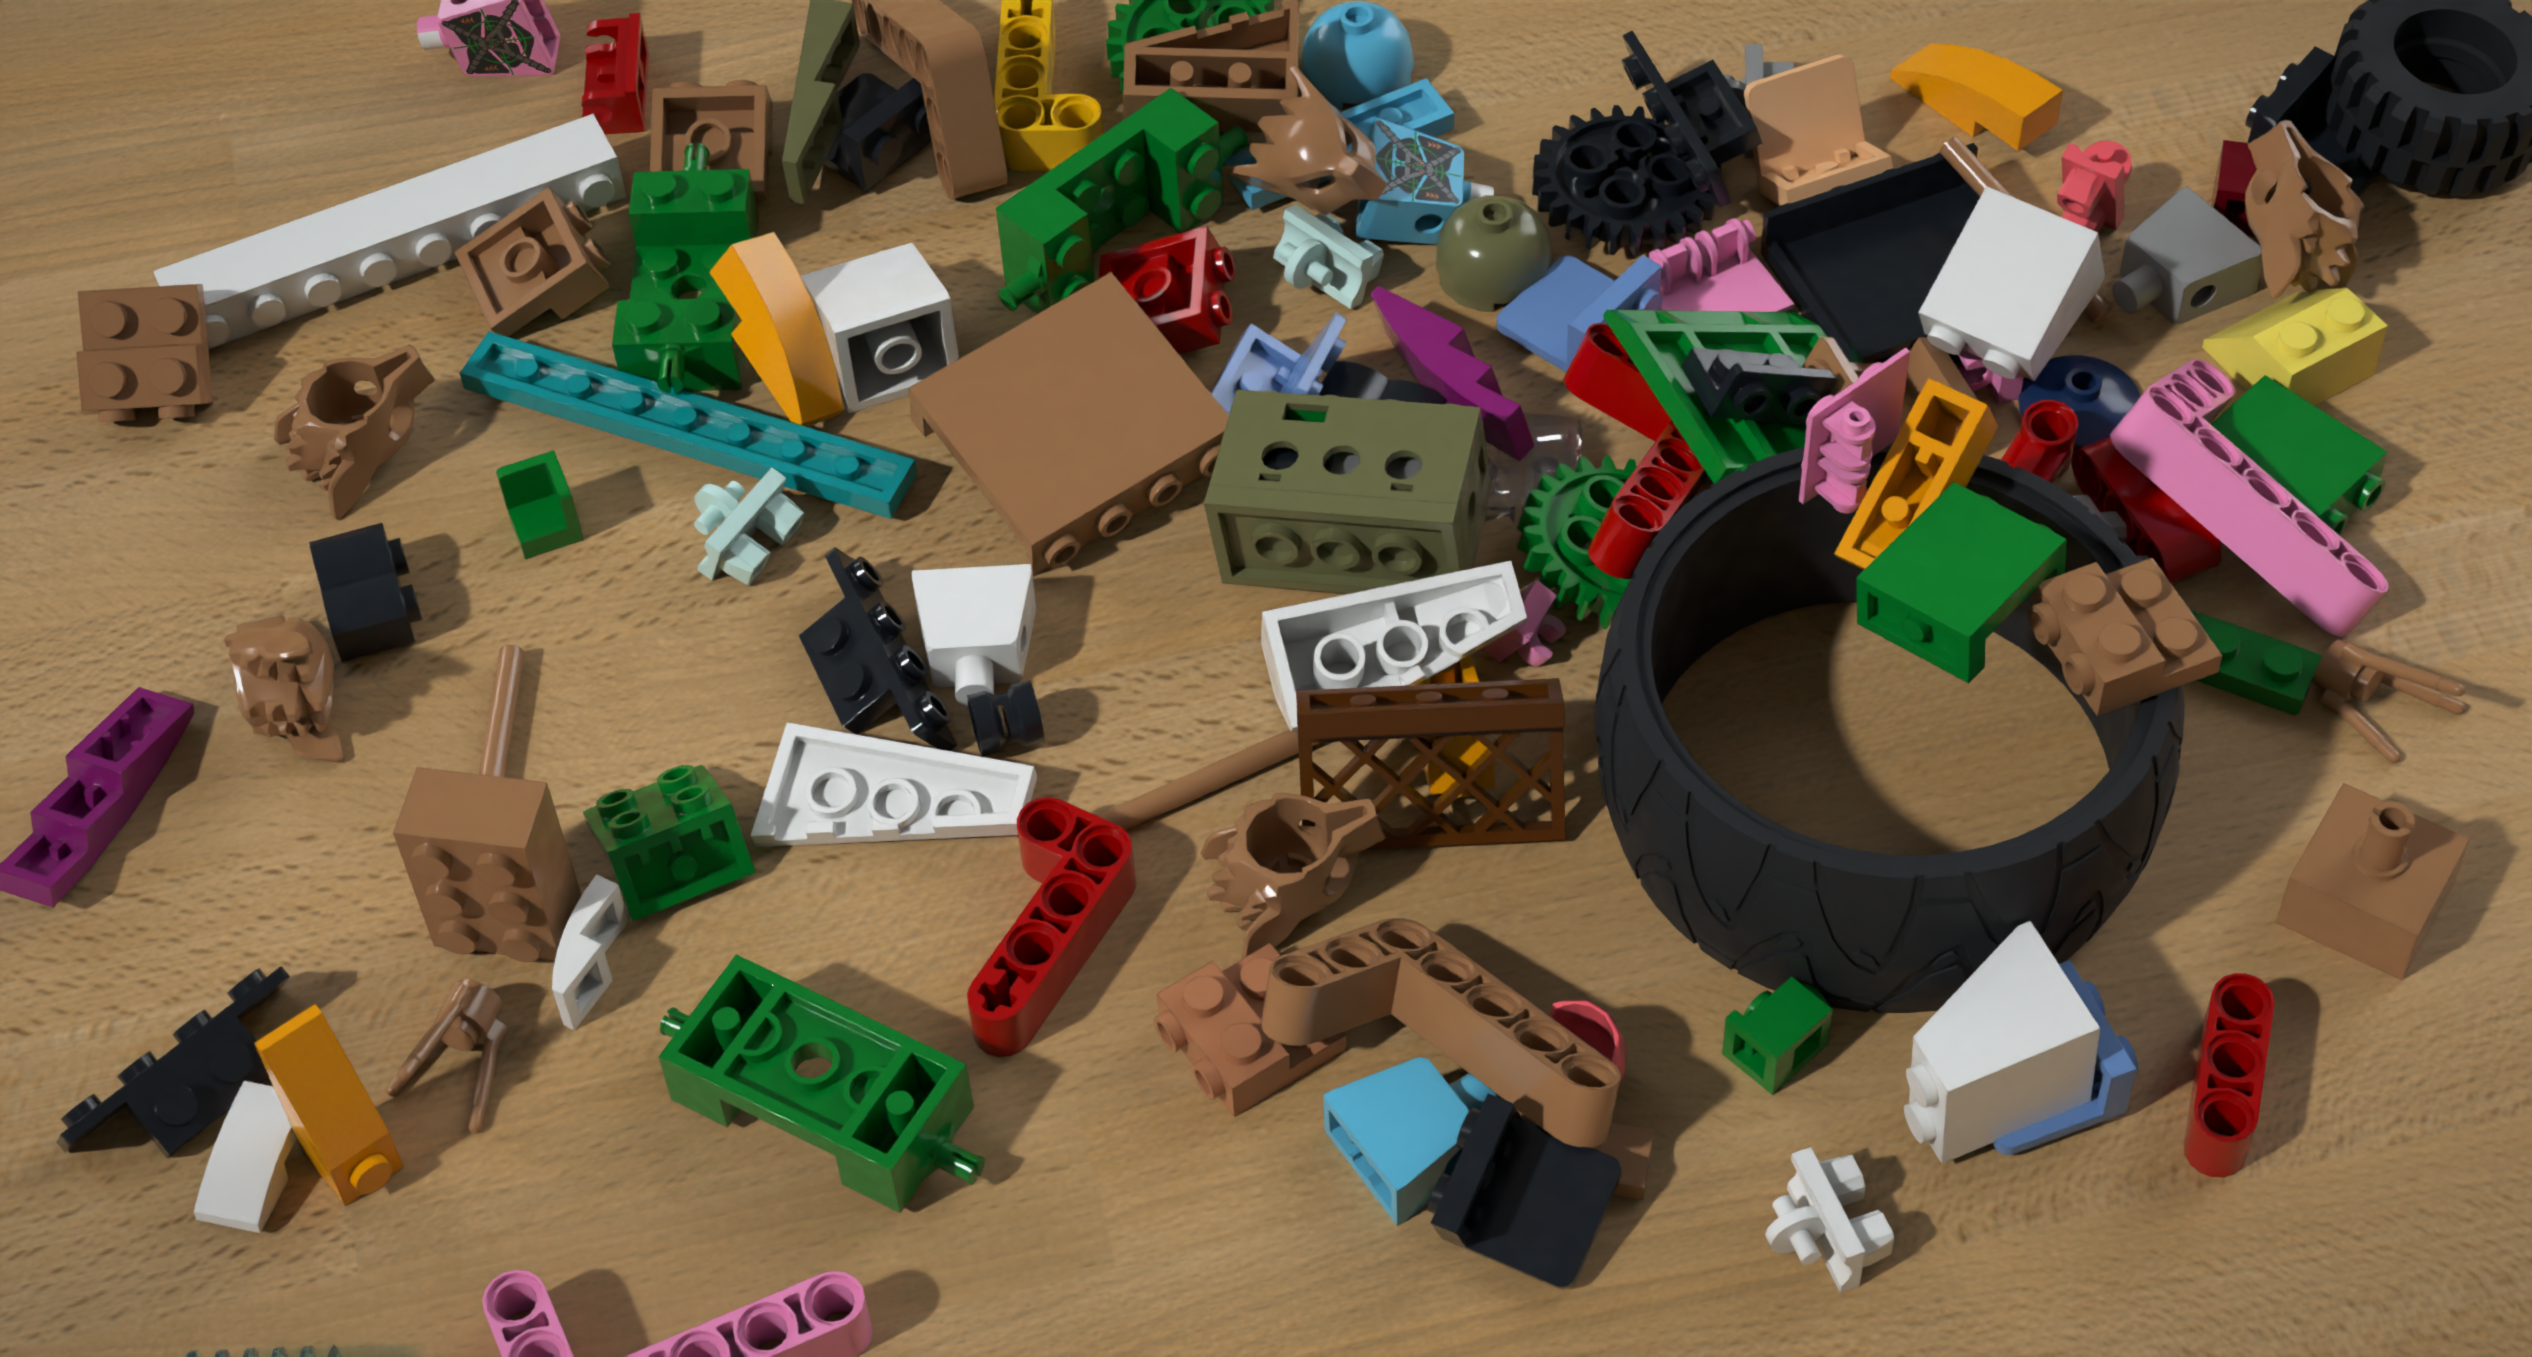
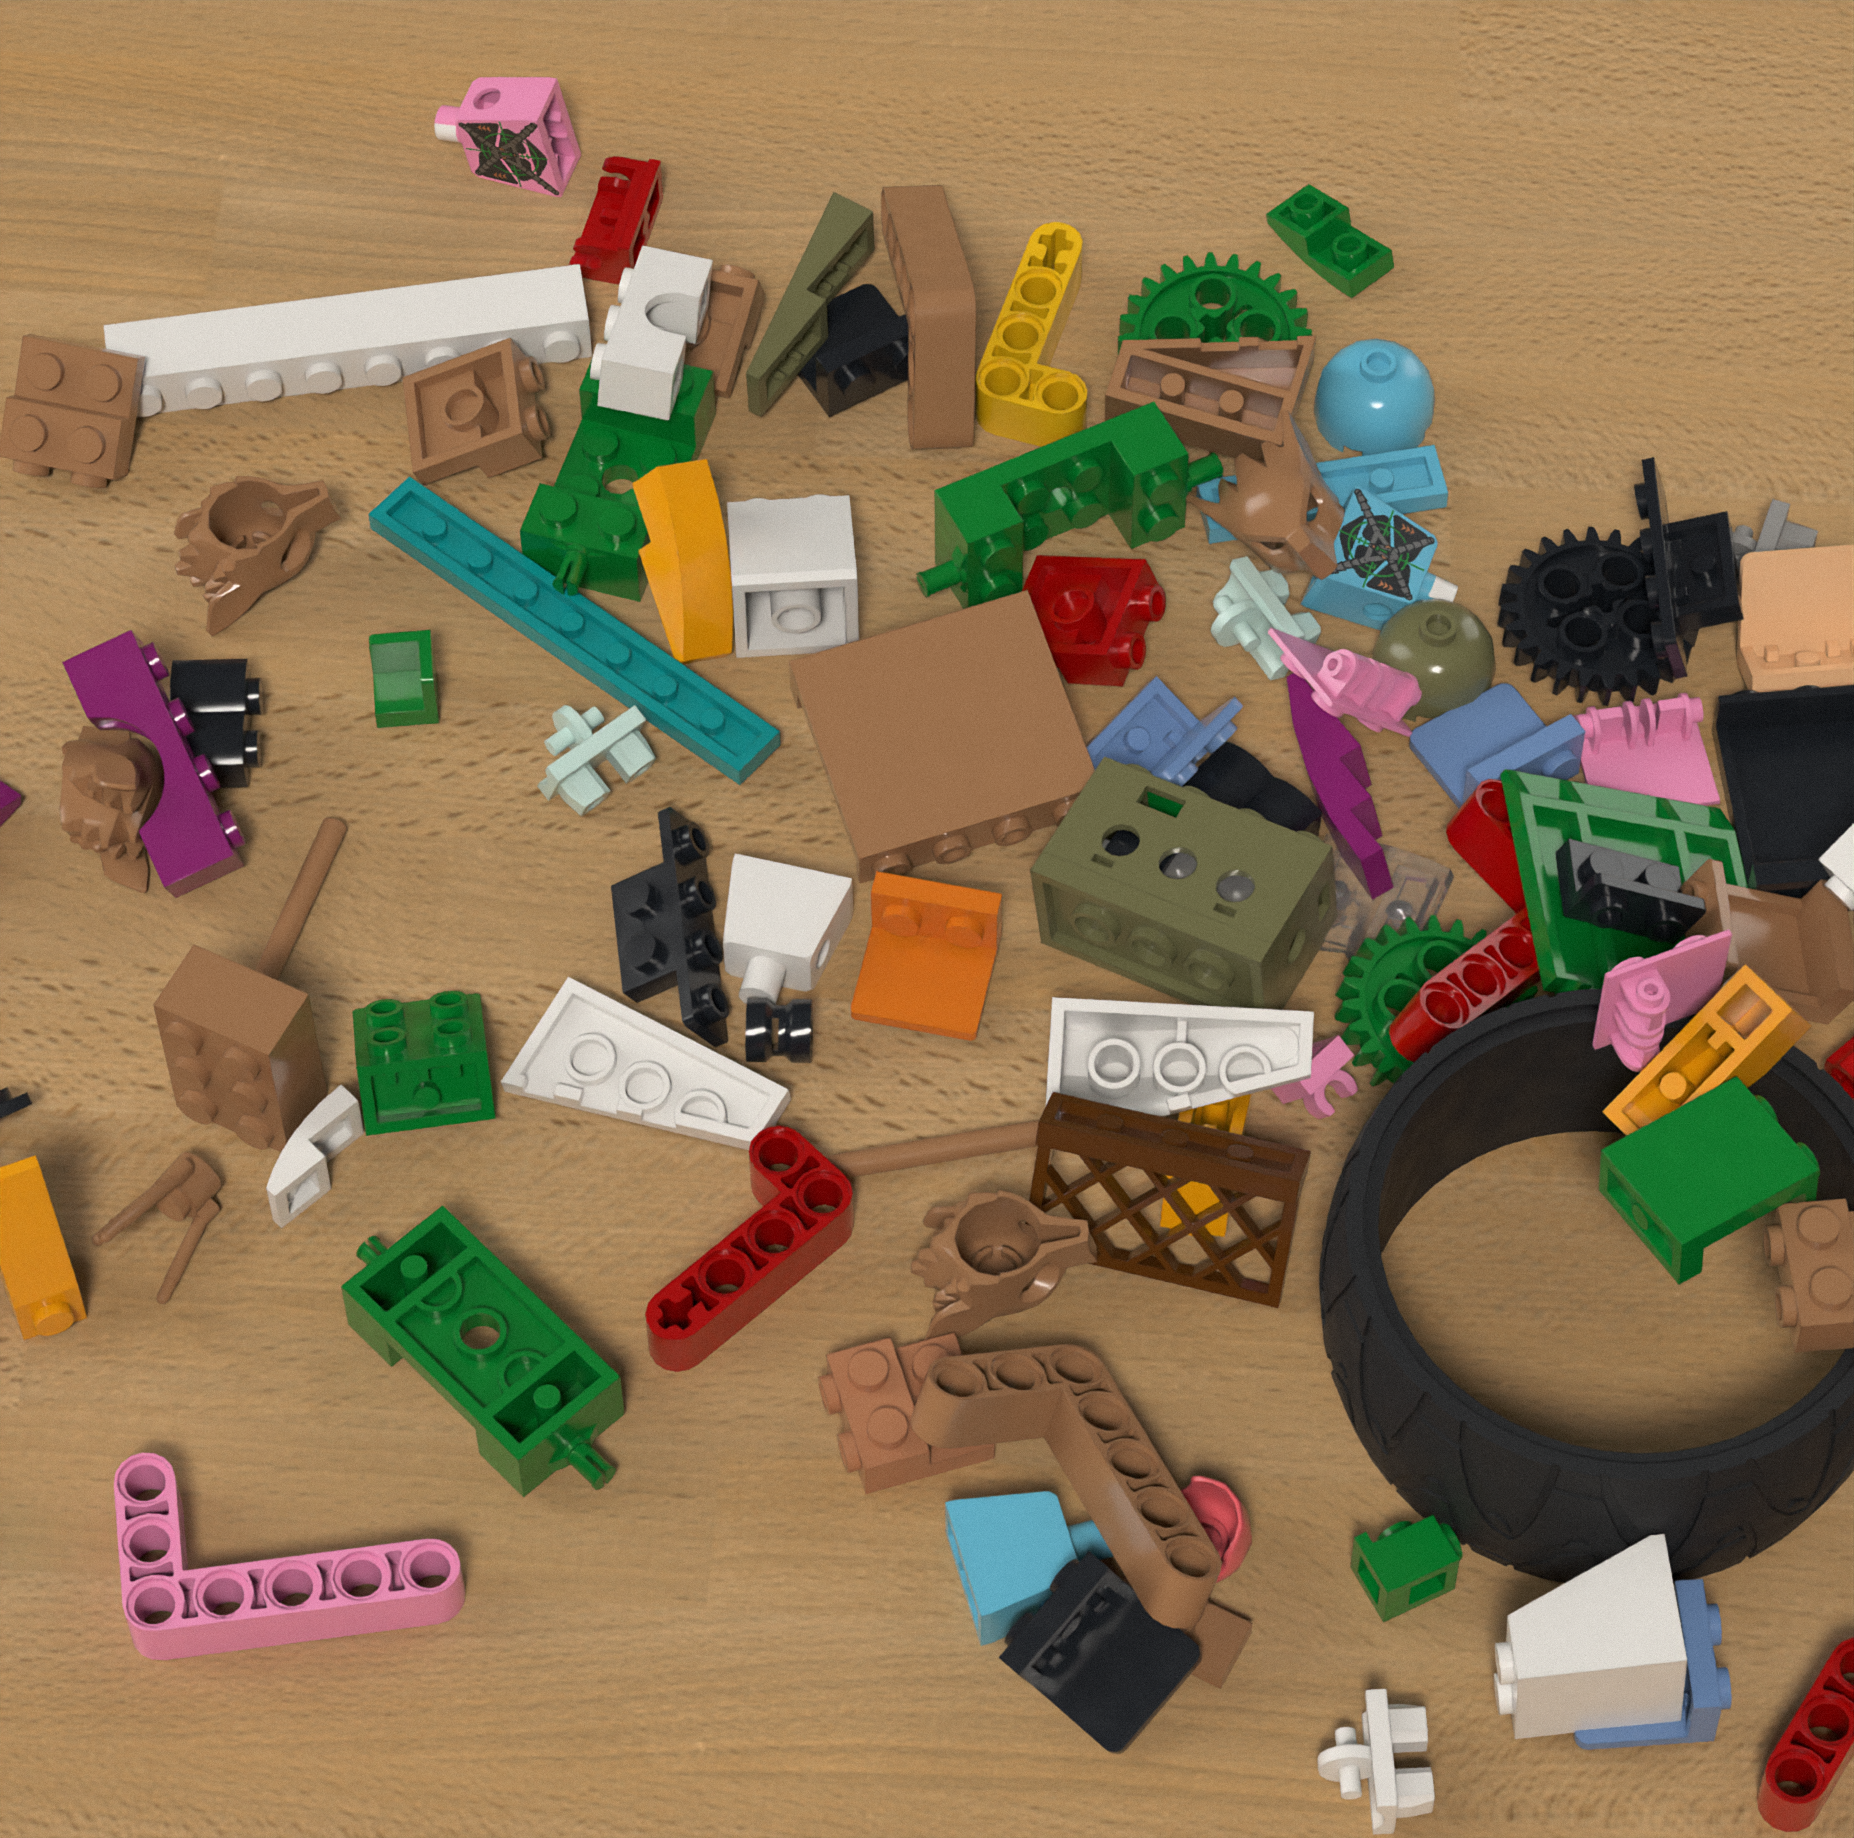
camera: 15 degrees right, 5 degrees up
(272, 577) = (187, 832): none -> magenta arch
(683, 144) = (648, 334): none -> white arch
(1124, 615) = (928, 956): none -> orange bracket
(1434, 279) = (1351, 683): none -> bright pink hinge

